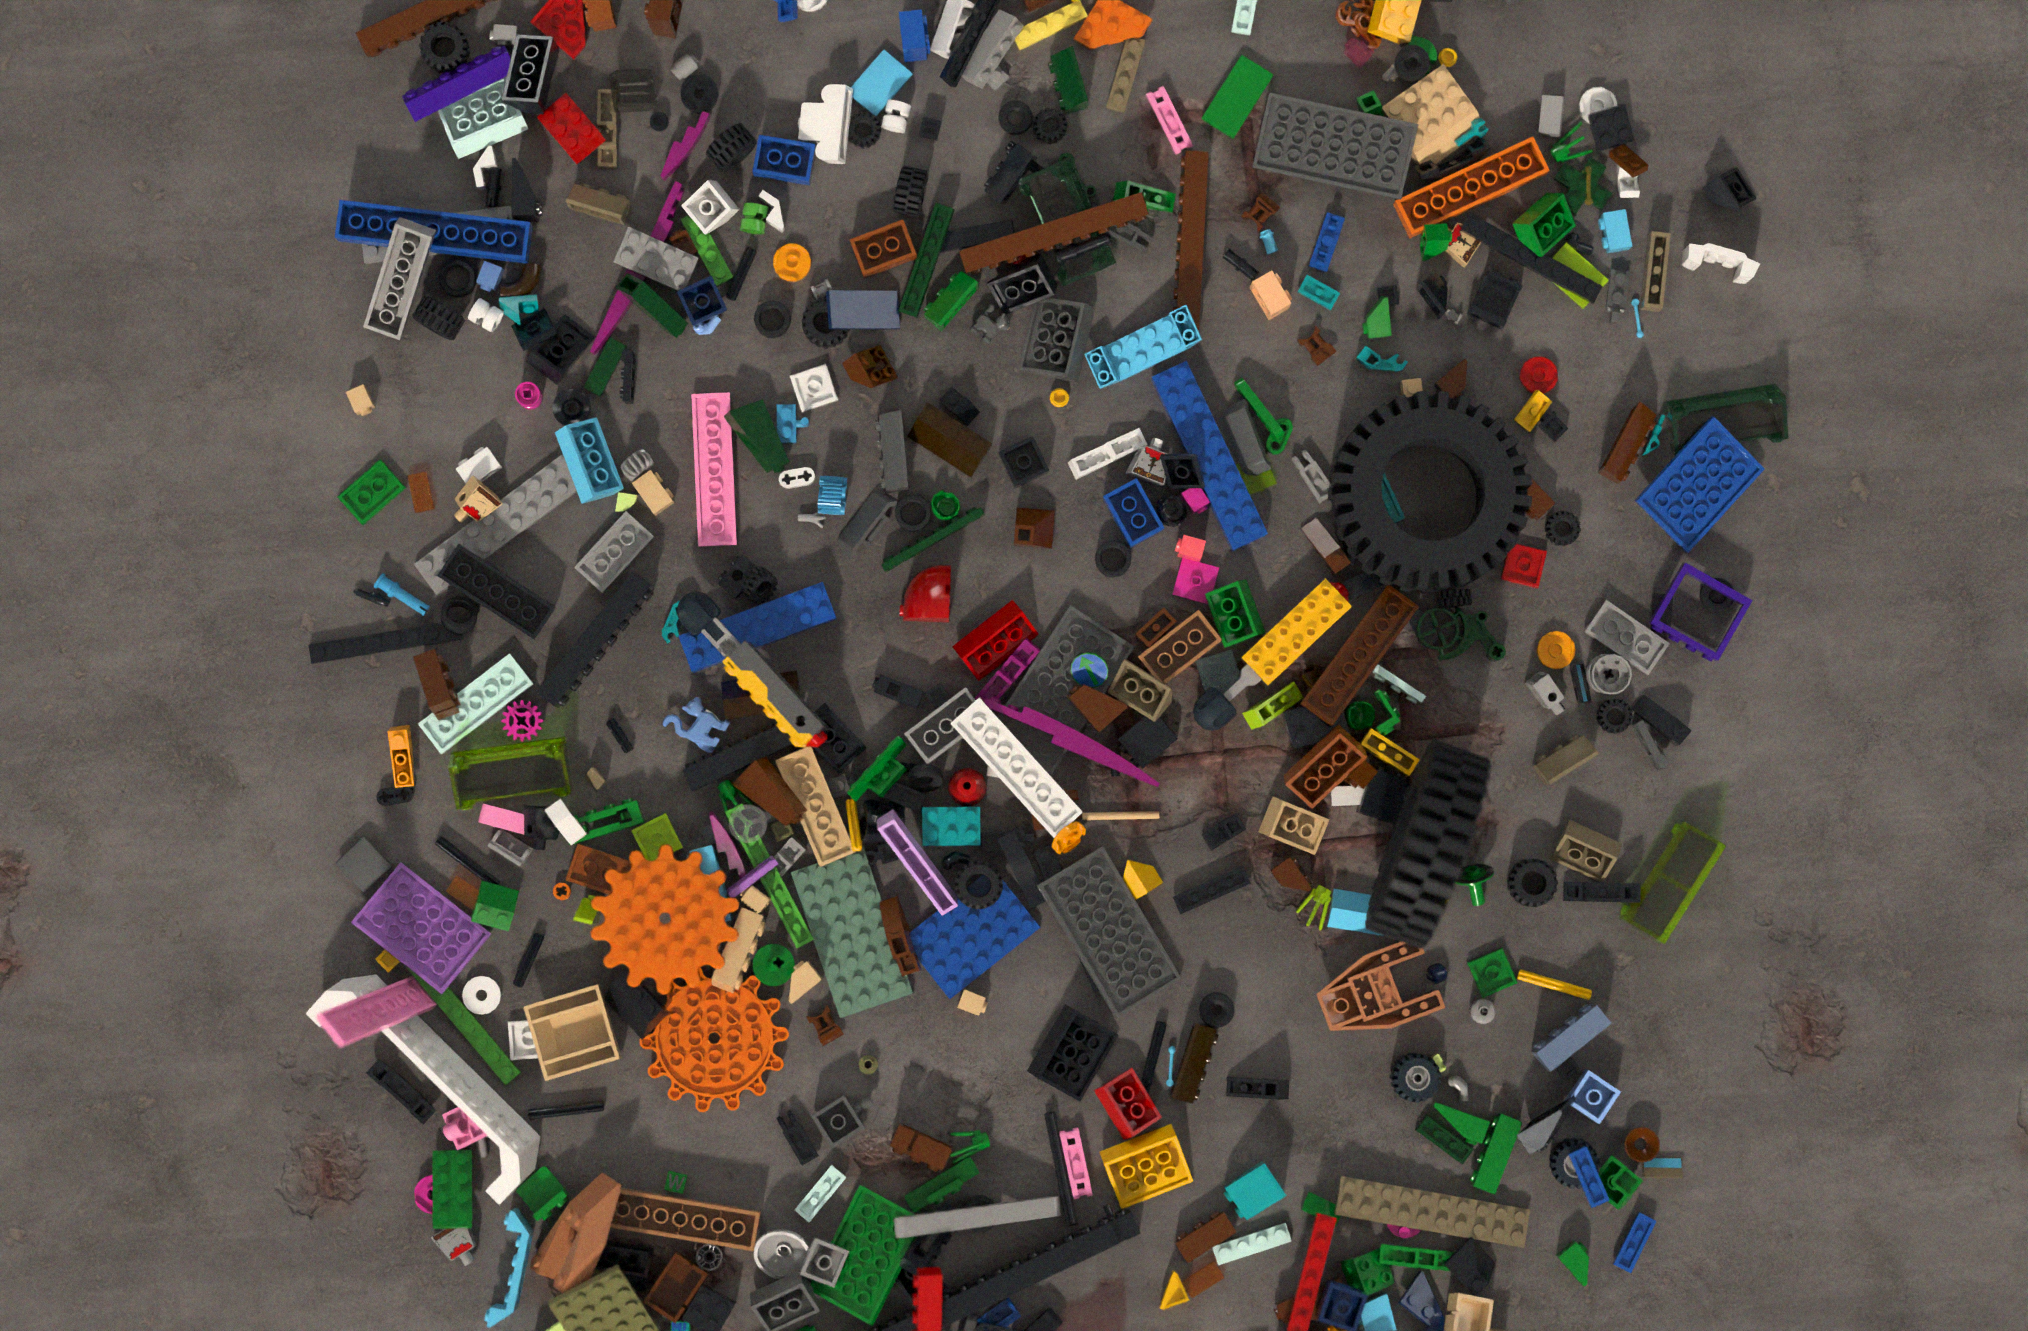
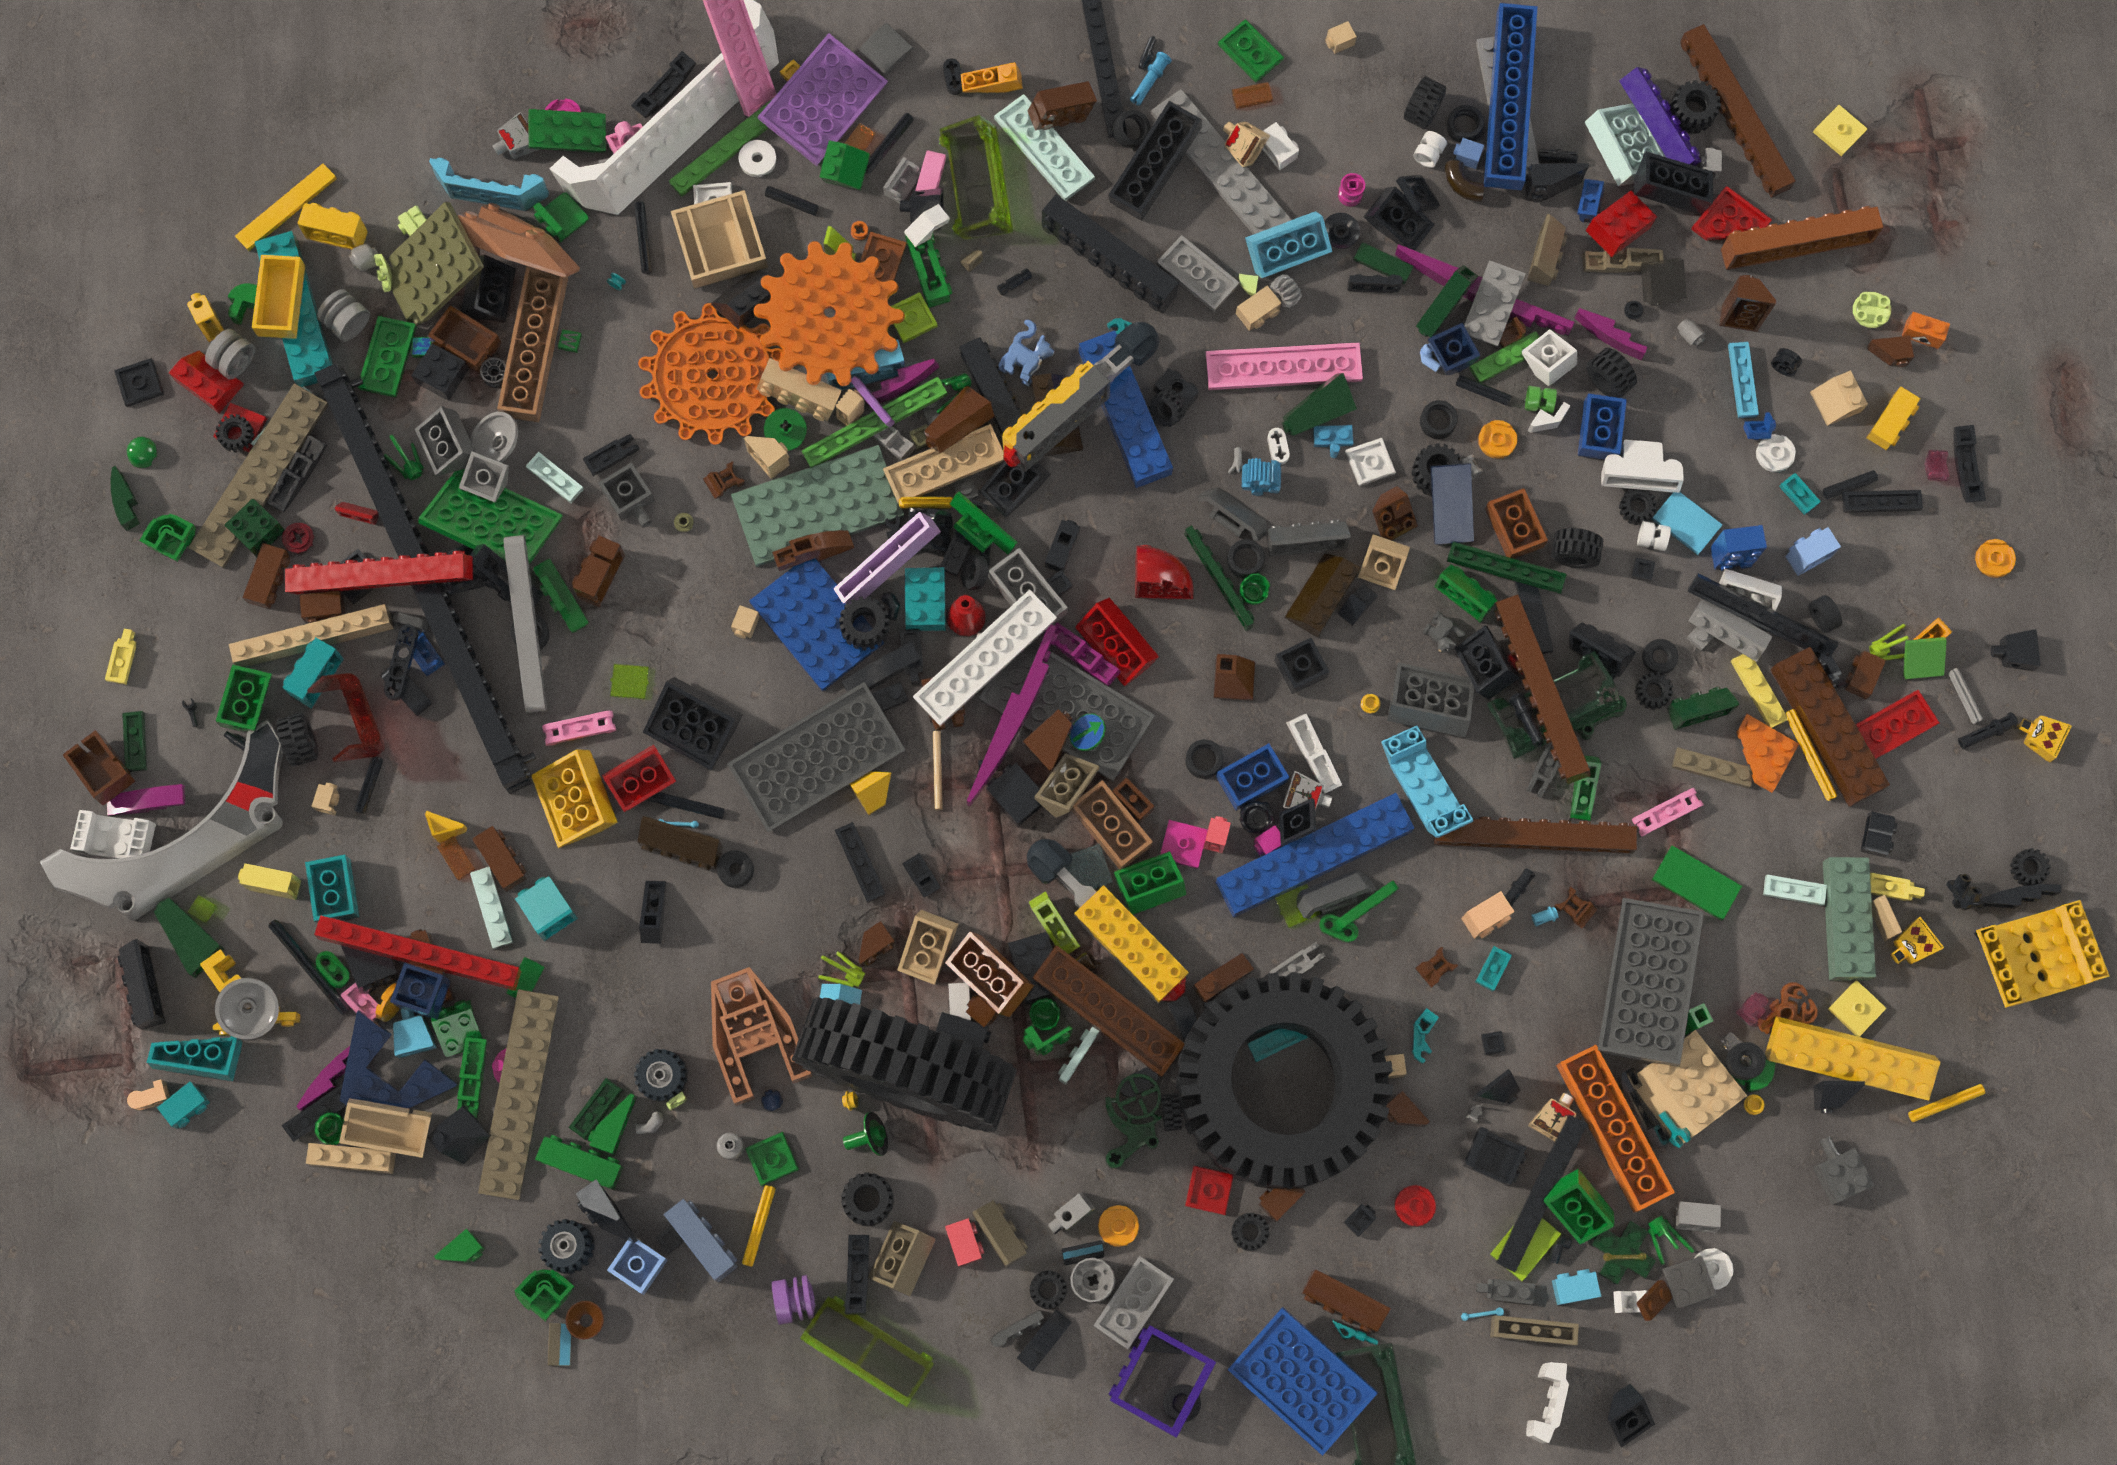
camera: 90 degrees right, 10 degrees down
(399, 278) = (1463, 62): light grey brick -> none
(486, 161) = (1585, 148): white slope -> none
(515, 305) = (1441, 178): teal slope -> none
(516, 727) = (1027, 182): dark pink gear -> none
(543, 157) = (1590, 199): none -> blue hinge
(614, 1136) = (616, 281): none -> teal bush
(699, 83) = (1663, 337): black plate -> none
(734, 19) = (1743, 380): none -> medium azure plate
(747, 823) = (926, 398): clear tile -> none
(918, 378) = (1384, 562): none -> tan slope
(979, 1143) = (601, 631): green plant -> none
(1028, 1115) = (629, 681): none -> clear neon green piece
(1060, 1168) = (569, 713): black axle -> none
(1068, 837) = (913, 714): light orange tile -> none
(1326, 242) = (1547, 977): blue plate -> none
(1378, 320) = (1465, 1030): green slope -> none
(1389, 752) = (1009, 1037): yellow brick -> none
(1434, 240) = (1555, 1087): green slope -> none
(1533, 411) = (1376, 1198): yellow plate -> none
(1571, 793) = (964, 1243): none -> coral brick
(1588, 1176) = (549, 1257): blue plate -> none
(1625, 951) = (793, 1299): none -> medium lavender wheel
(1634, 1242) = (480, 1313): blue plate -> none

